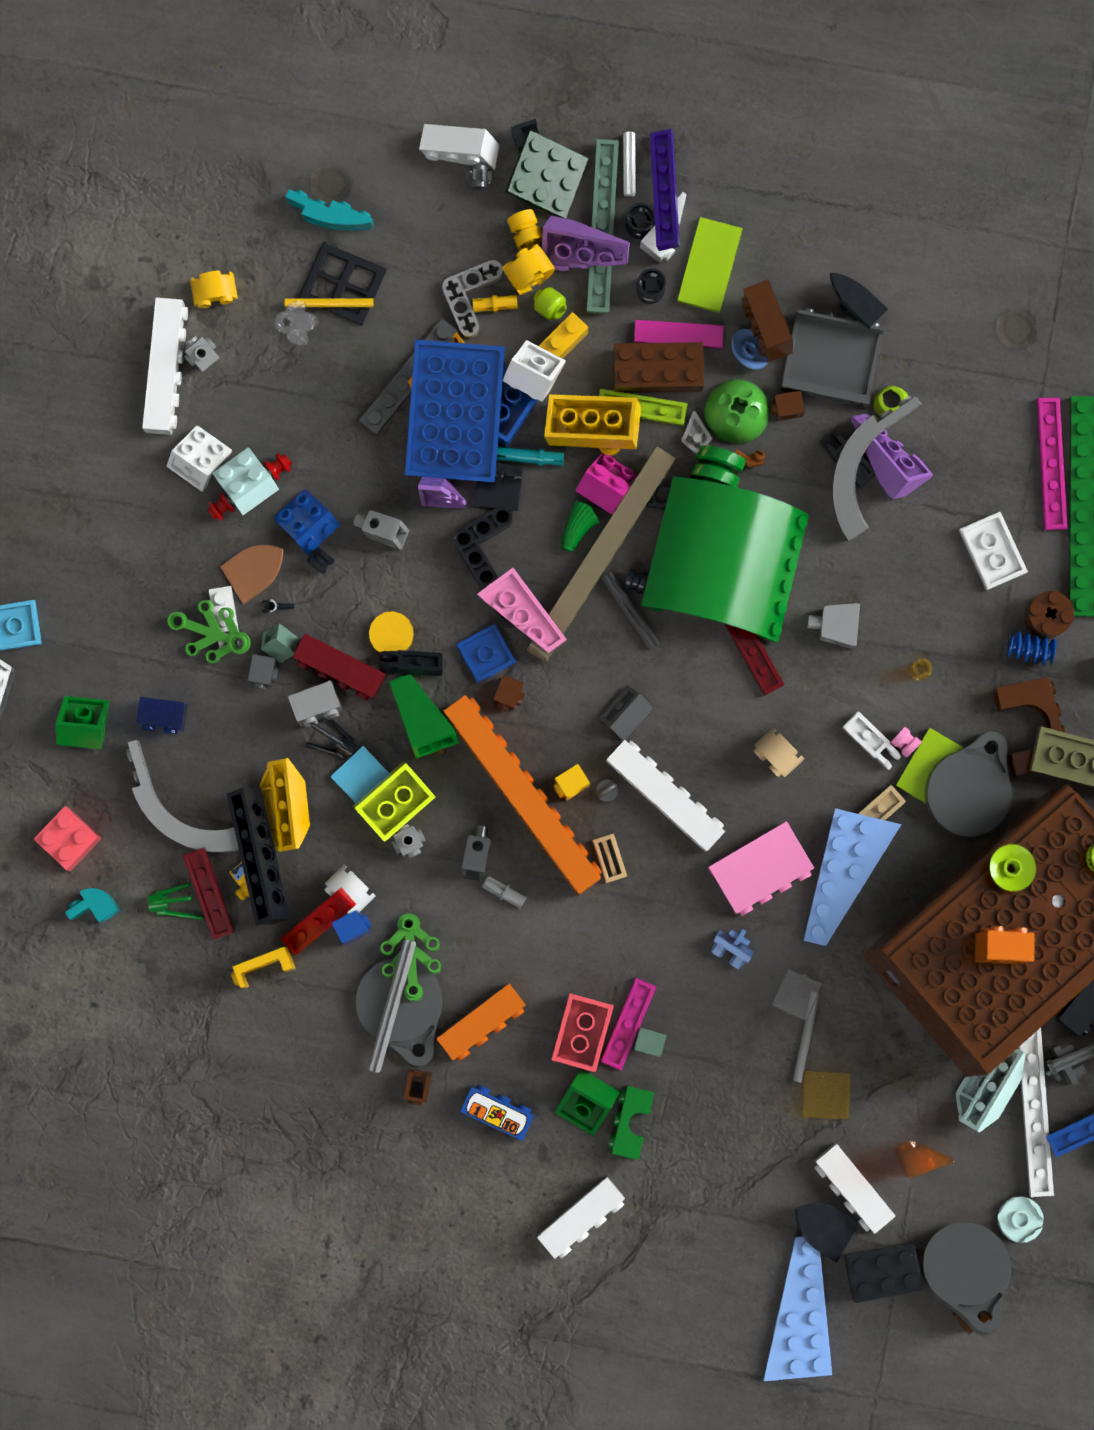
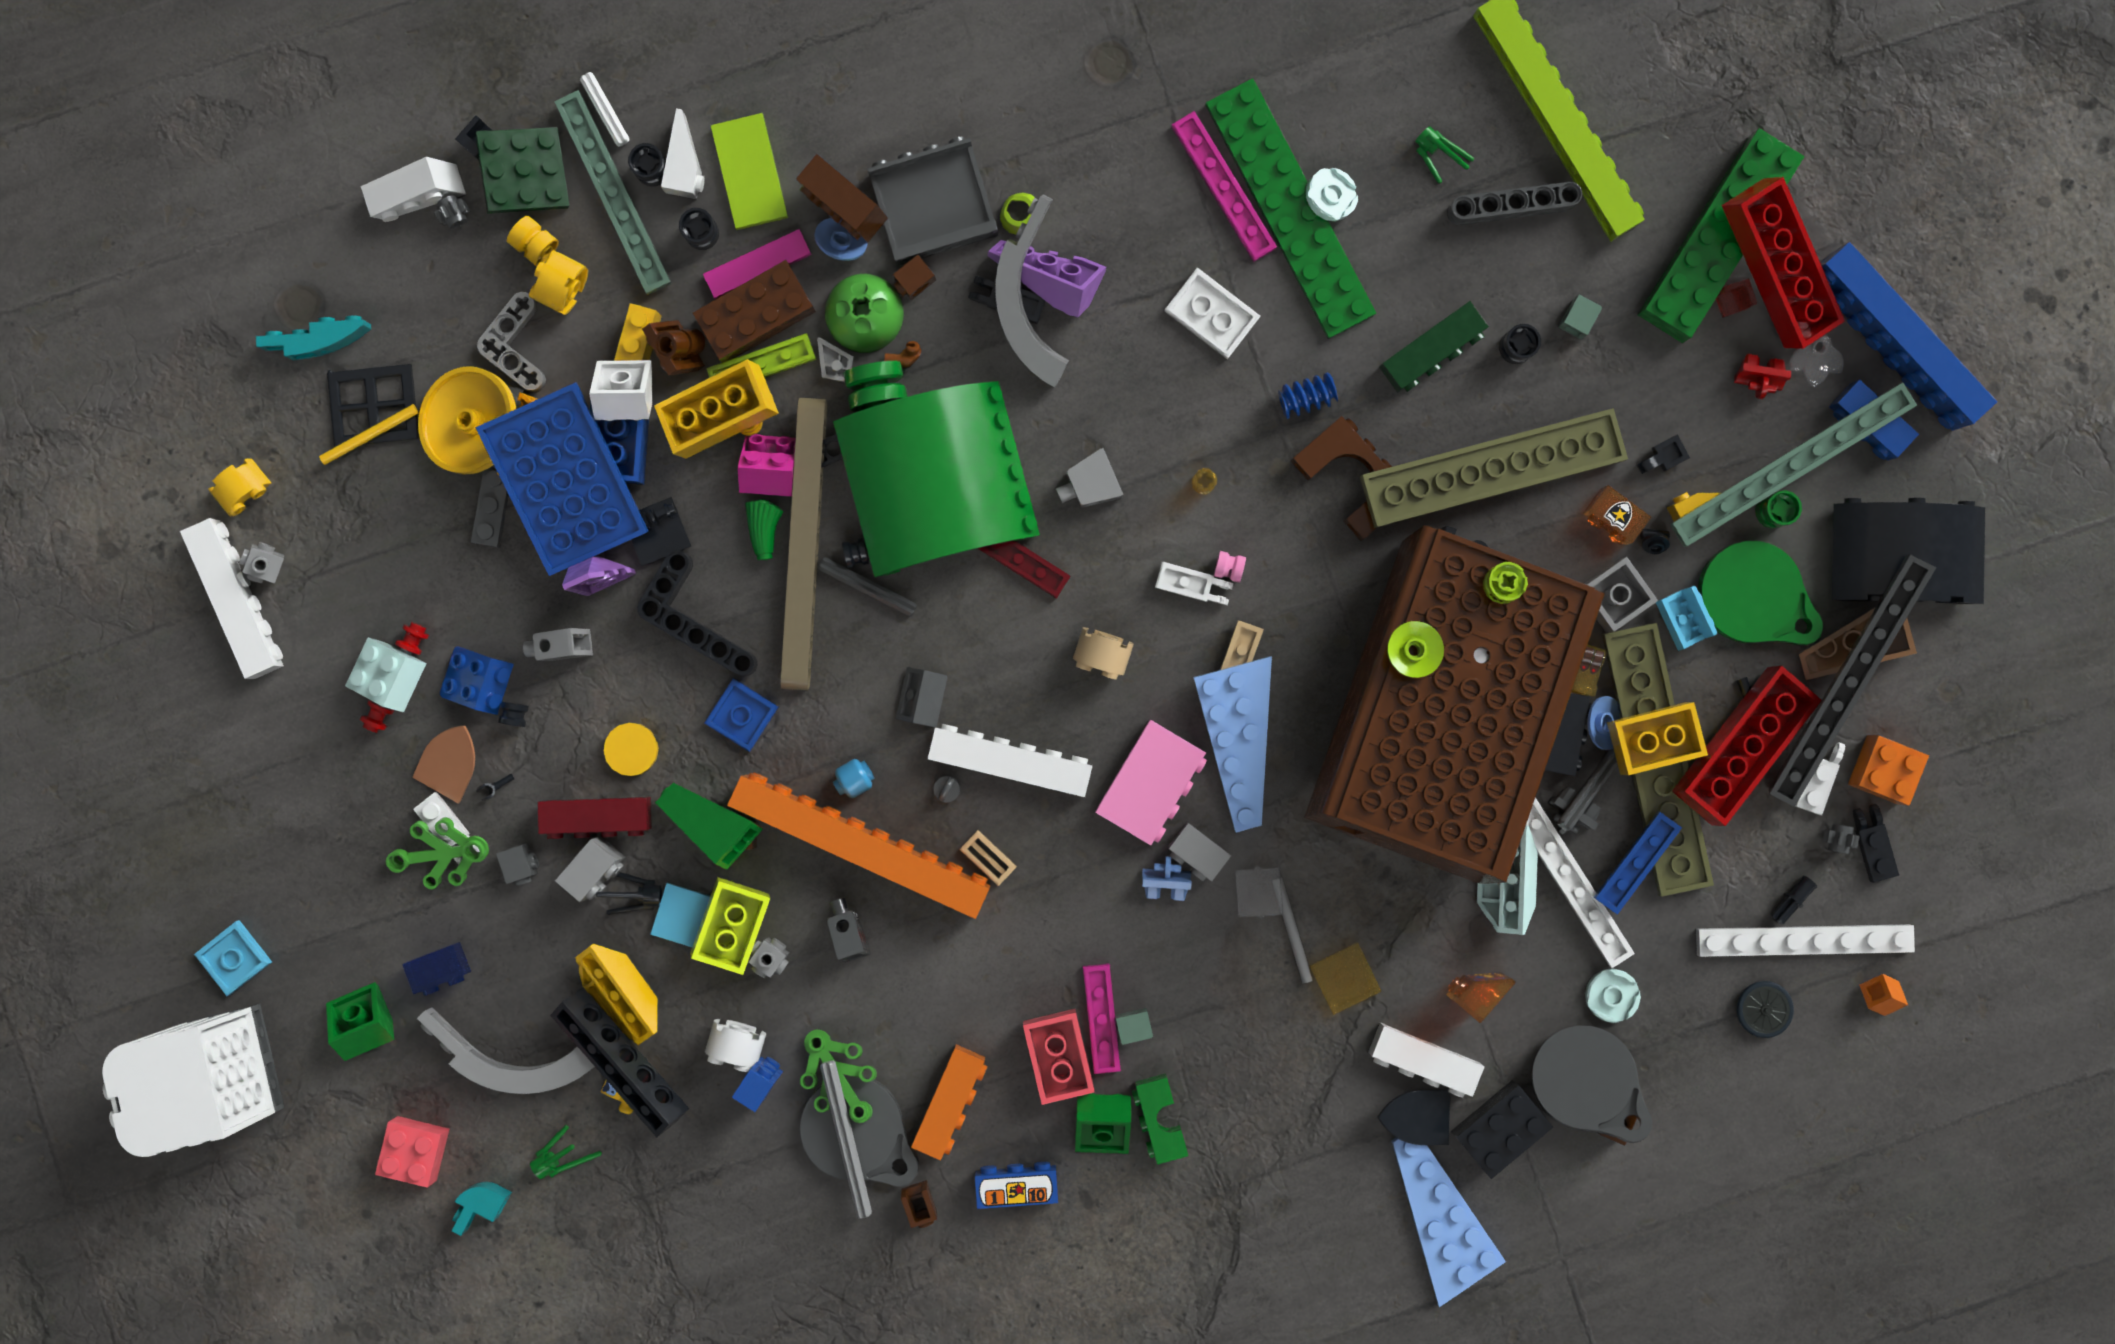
camera: 25 degrees left, 5 degrees up
(198, 457) = (322, 675): white bracket -> none
(208, 893) = (590, 1127): dark red tile -> none
(279, 643) = (518, 824): sand green panel -> none
(281, 954) = (708, 1153): yellow panel -> none
(300, 322) = (349, 471): clear plate -> none
(318, 921) = (719, 1095): red tile -> none
(400, 321) = (453, 410): none -> yellow dish
(411, 662) = (668, 769): black hinge -> none
(495, 303) = (545, 338): yellow pin -> none
(504, 892) = (898, 954): light grey axle -> none
(509, 693) = (788, 745): reddish brown brick -> none
(521, 608) = (748, 649): bright pink wing -> none
(530, 456) = (671, 481): teal pin -> none
(543, 744) = (853, 778): none -> dark azure head
(550, 303) = (602, 306): lime head -> none
(571, 782) = (903, 804): yellow brick -> none
(578, 245) = (598, 227): medium lavender wedge -> none
(580, 1217) = (1161, 1246): white brick -> none
(588, 361) = (676, 346): none -> reddish brown plate
(664, 190) = (655, 117): dark purple plate -> none
(768, 939) = (1199, 852): none -> light grey brick
(857, 299) = (924, 123): black shield -> none
(927, 755) = (1271, 578): lime tile -> none
(970, 788) = (1323, 577): dark grey piece -> none
(1003, 946) = (1448, 743): orange brick -> none
(1051, 602) = (1321, 344): reddish brown brick -> none

